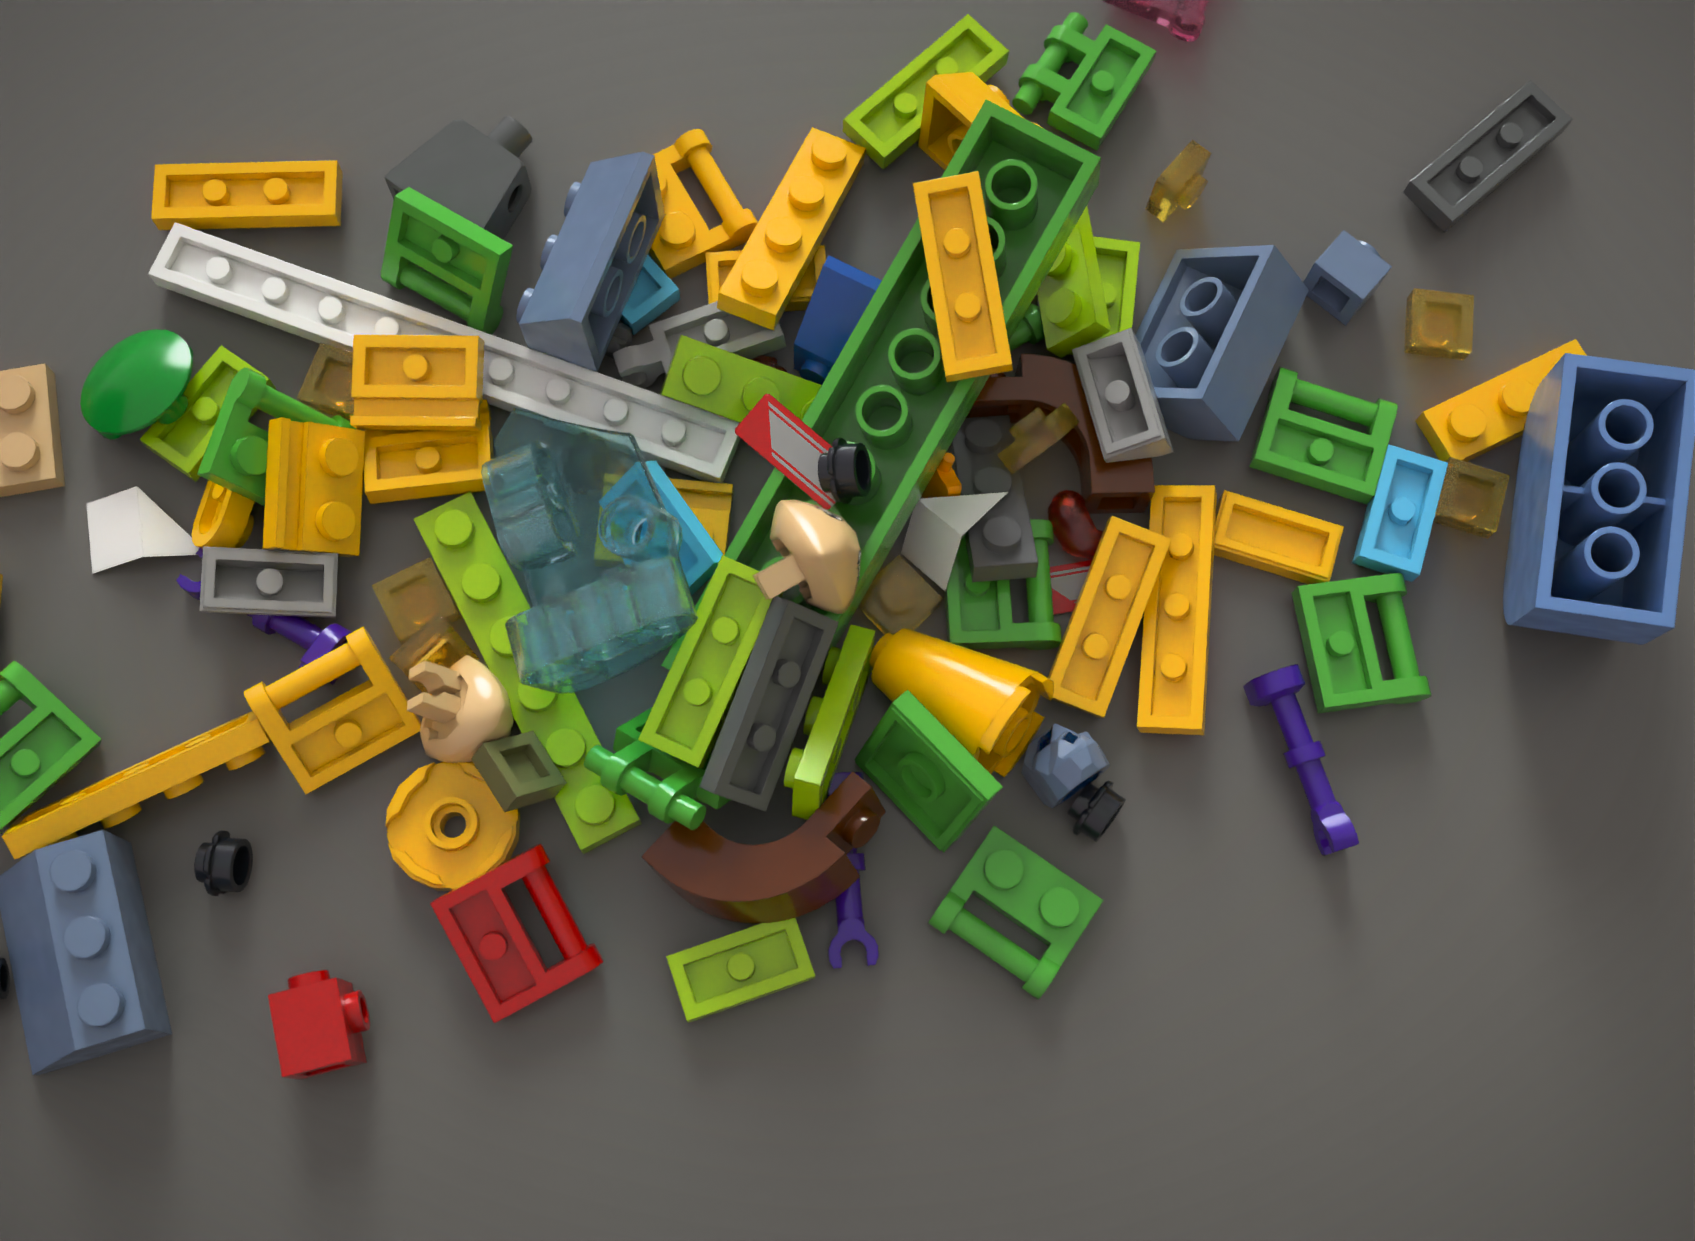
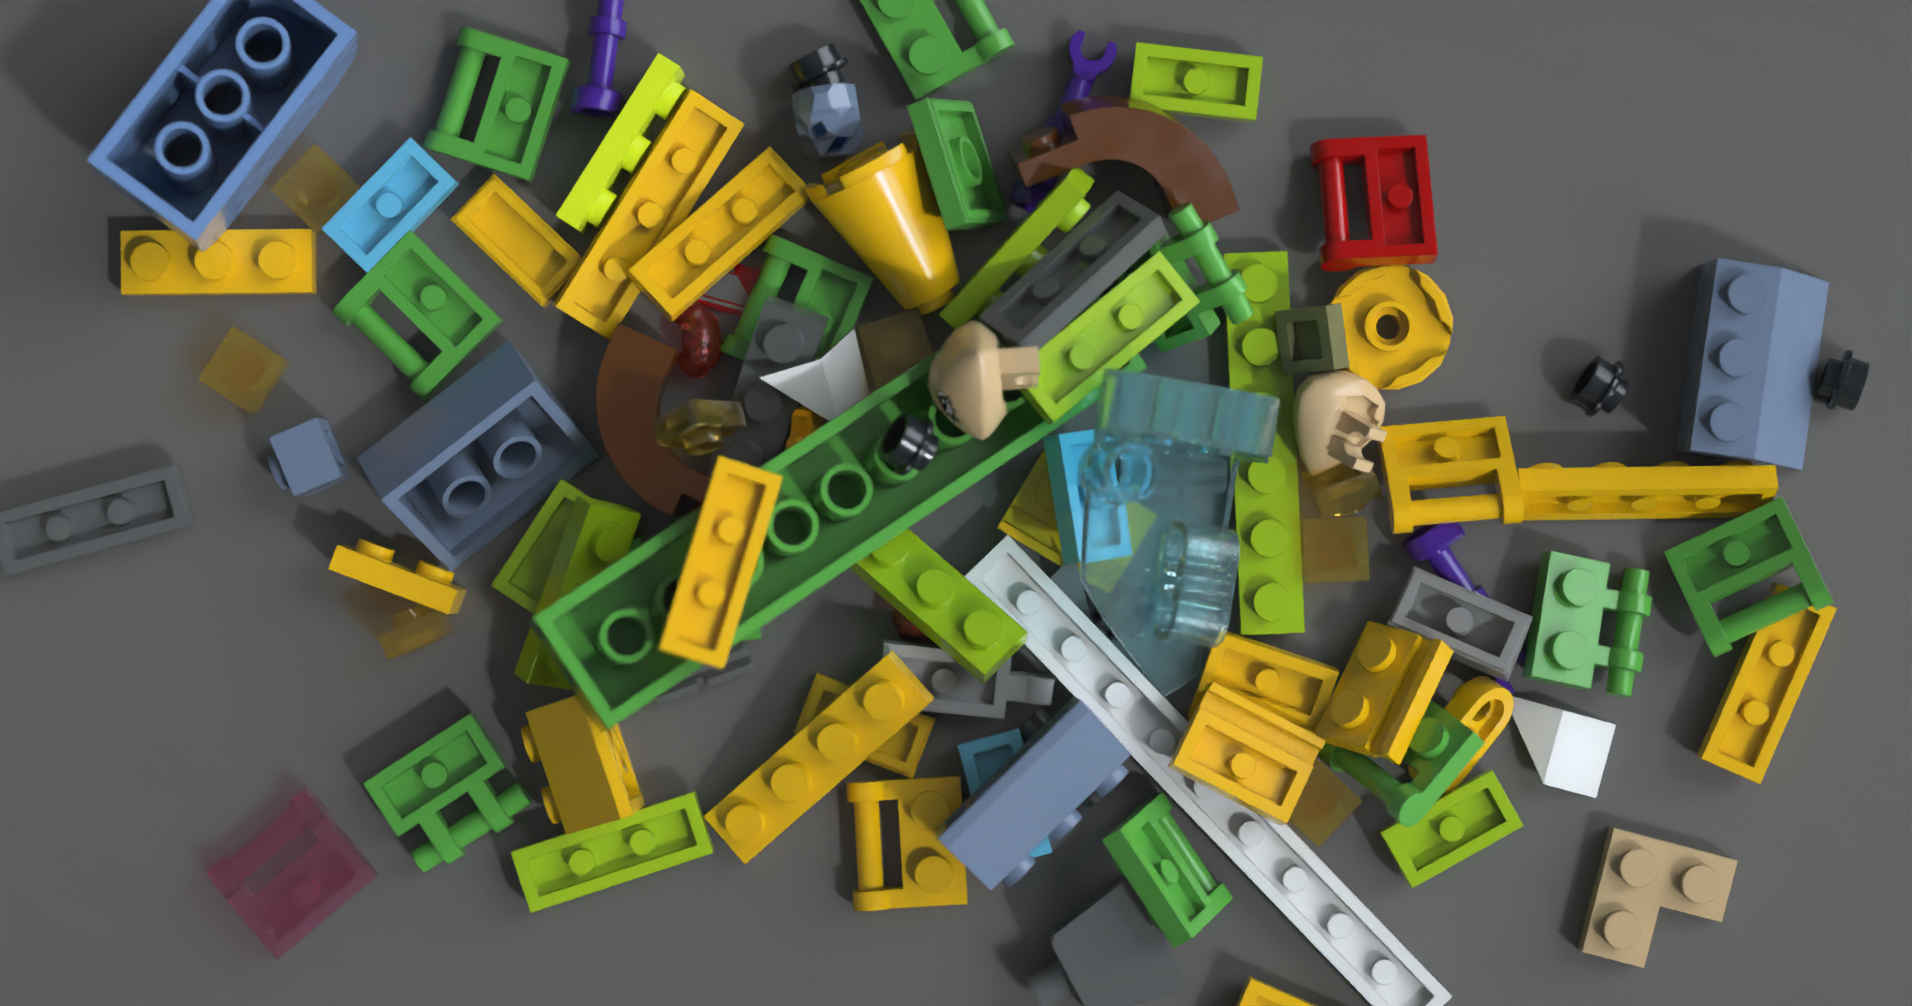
camera: 145 degrees left, 15 degrees up
(138, 384) = (1503, 884): green dish -> none
(168, 635) = (1568, 622): none -> bright green plate
(318, 1025) = (1573, 203): red brick -> none
(786, 445) = (945, 503): sticker -> none
(831, 317) = (831, 622): blue slope -> none
(1122, 398) = (601, 423): light grey slope -> none
(1218, 216) = (374, 566): none -> yellow plate
(1233, 656) = (623, 145): none -> neon yellow plate

